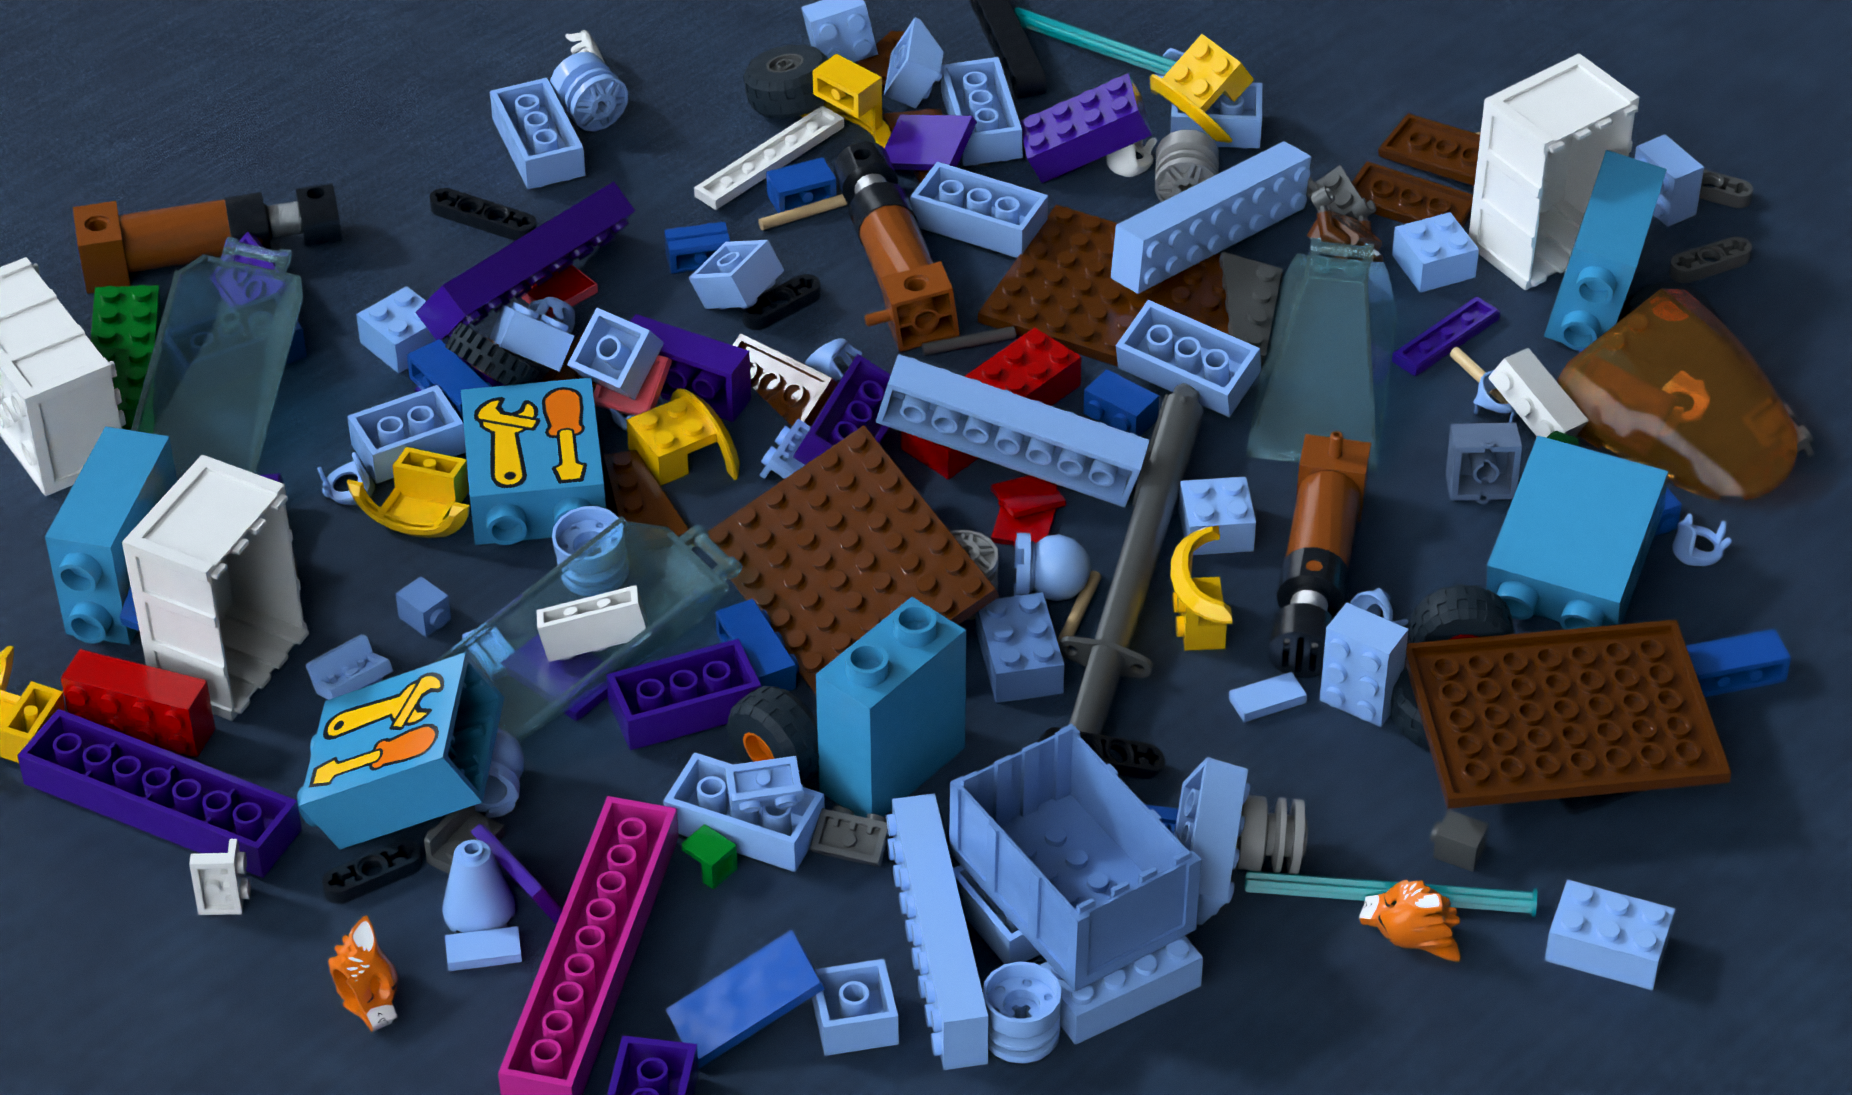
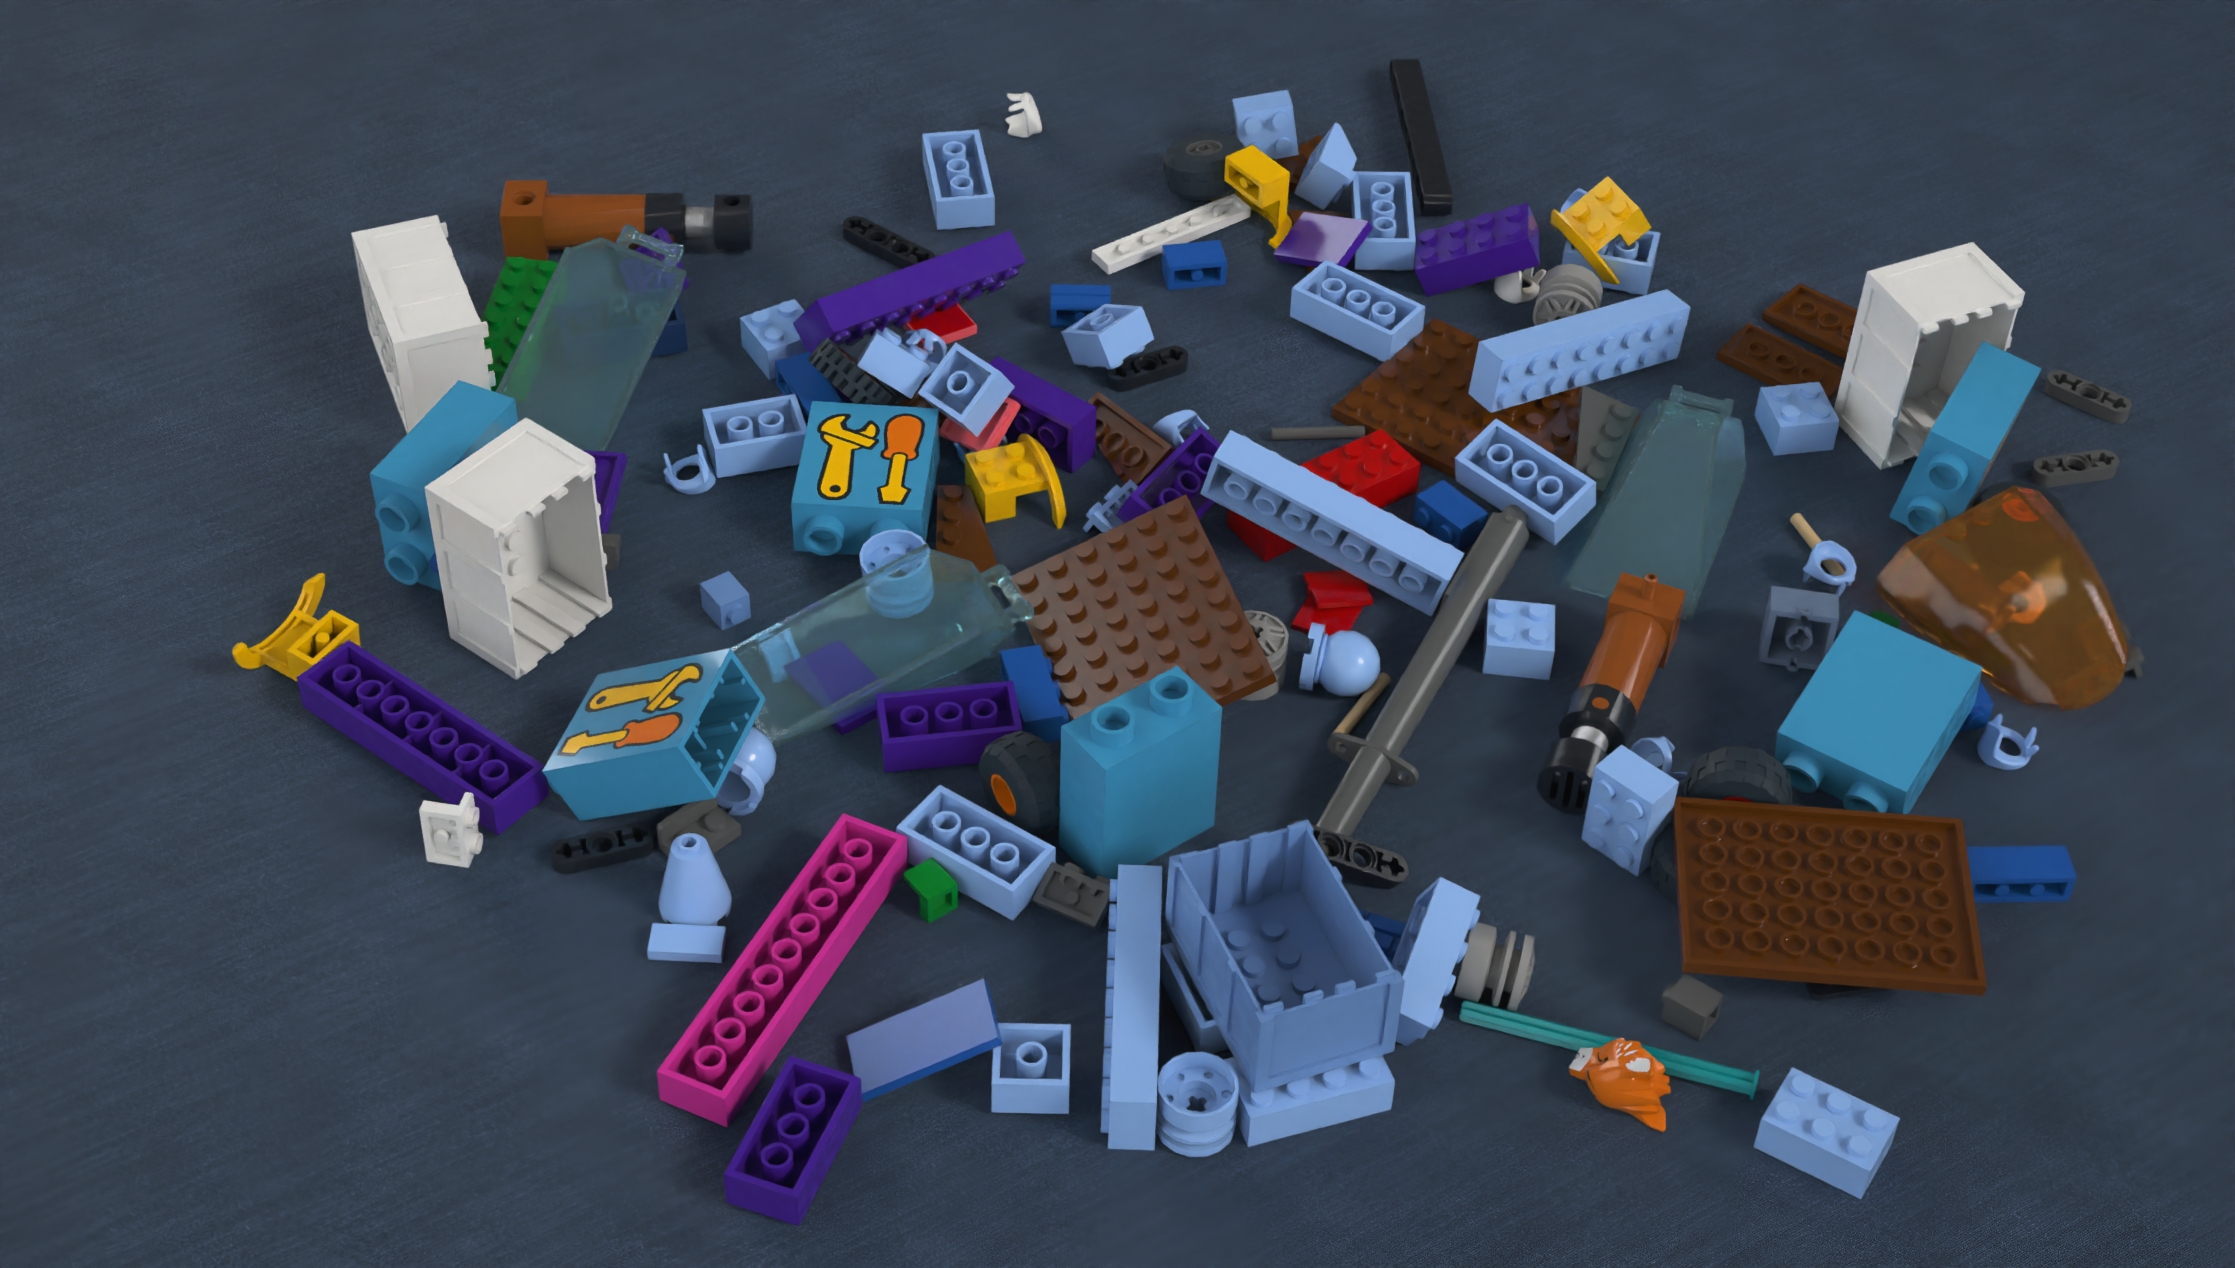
camera: 10 degrees right, 0 degrees up
(140, 701) = (428, 647): red brick -> none
(347, 668) = (635, 646): light blue bracket -> none
(365, 976) = (562, 950): orange piece -> none
(424, 497) = (756, 499): yellow piece -> none
(519, 874) = (735, 872): dark purple tile -> none
(589, 91) = (1015, 148): light blue wheel -> none
(591, 623) = (873, 642): white brick -> none
(764, 784) = (996, 828): light blue bracket -> none
(802, 212) = (1190, 288): tan bar -> none
(913, 286) = (1270, 356): dark orange piece -> none
(1020, 648) = (1290, 736): medium blue brick -> none
(1094, 42) = (1506, 172): teal axle -> none
(1198, 600) = (1478, 716): yellow piece -> none
(1267, 697) = (1528, 826): light blue tile -> none
(1341, 228) = (1707, 381): torso -> none
(1342, 187) = (1710, 352): dark grey bracket -> none
(1445, 335) = (1789, 500): dark purple tile -> none
(1537, 395) = (1867, 572): white brick -> none
(1681, 183) = (2056, 387): light blue brick -> none

